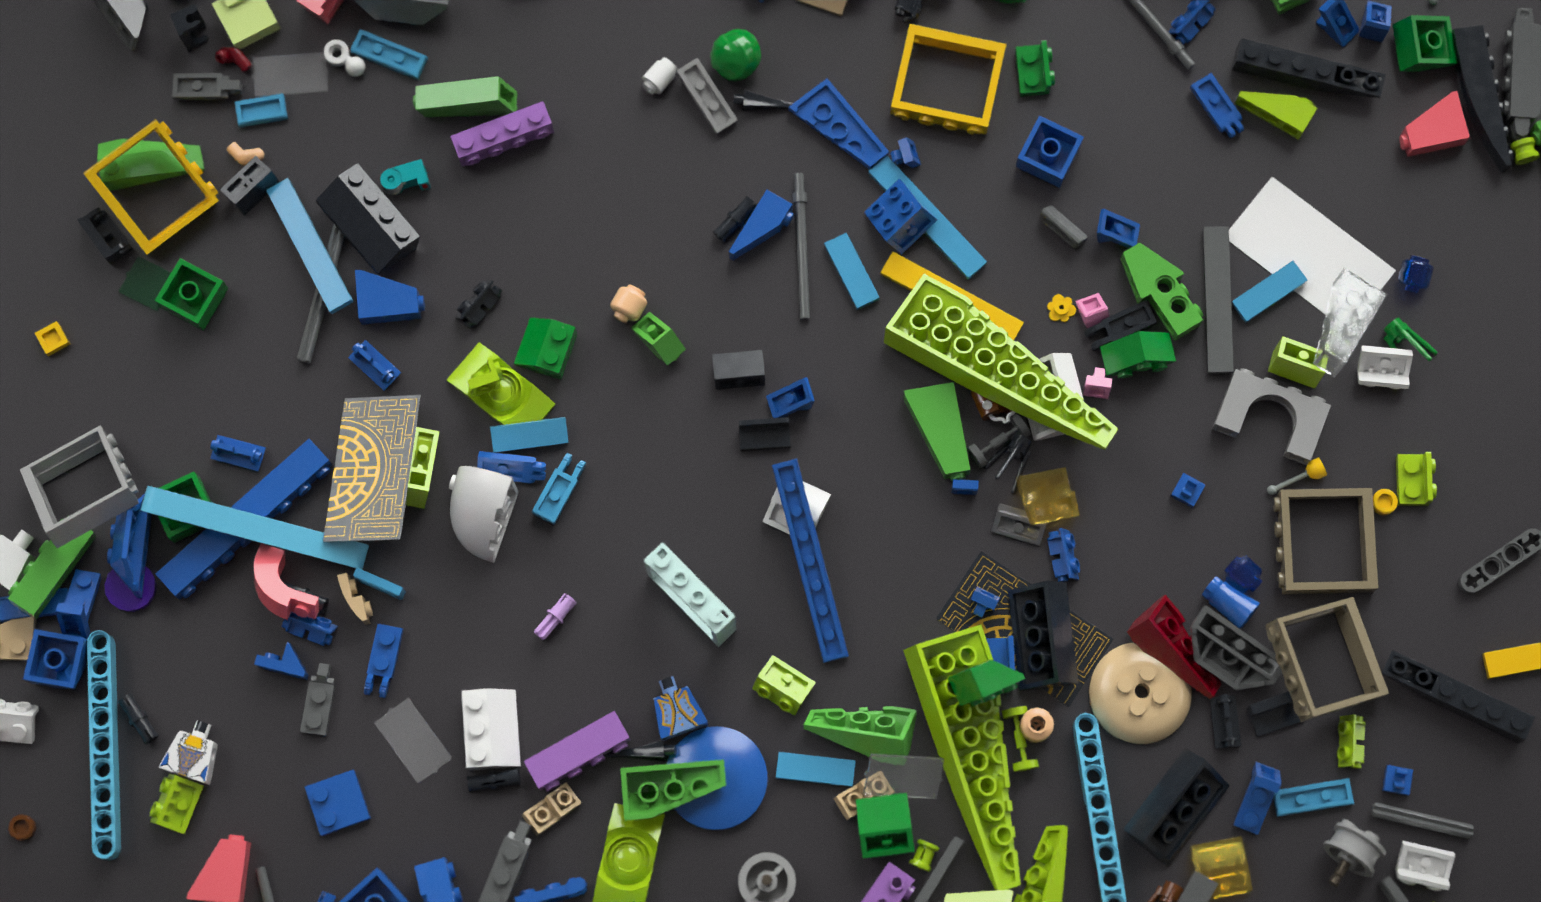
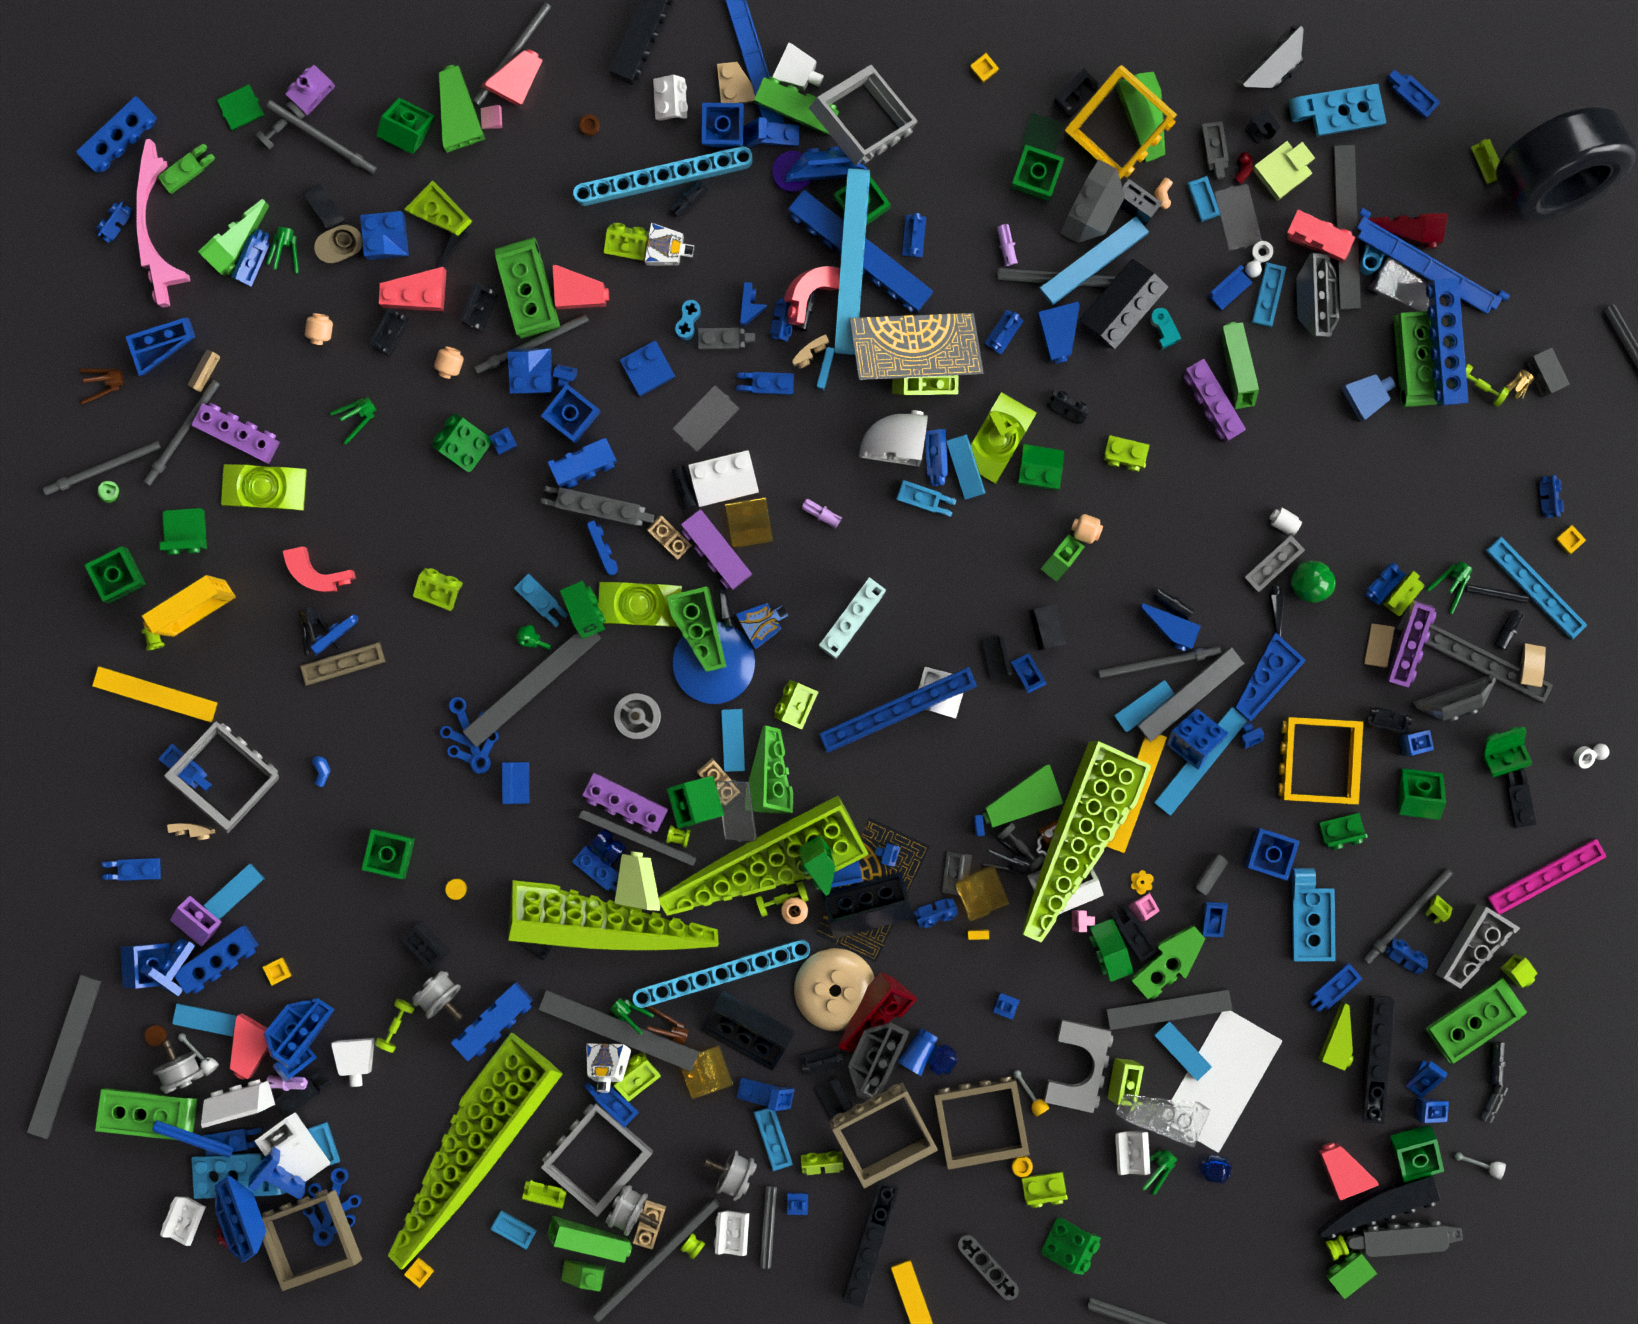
camera: 80 degrees right, 10 degrees up
(243, 232) = (1095, 204): none -> dark grey wedge
(270, 344) = (1007, 245): none -> lavender axle
(287, 742) = (688, 320): none -> dark azure axle
(373, 96) = (1229, 288): none -> blue panel
(545, 246) = (1126, 452): none -> lime bracket
(551, 707) = (749, 522): none -> clear yellow slope
(846, 216) = (1190, 694): none -> tile
(1097, 509) = (978, 934): none -> yellow tile
(1111, 119) = (1308, 901): none -> dark azure hinge
(1487, 459) = (1070, 1246): none -> green bracket

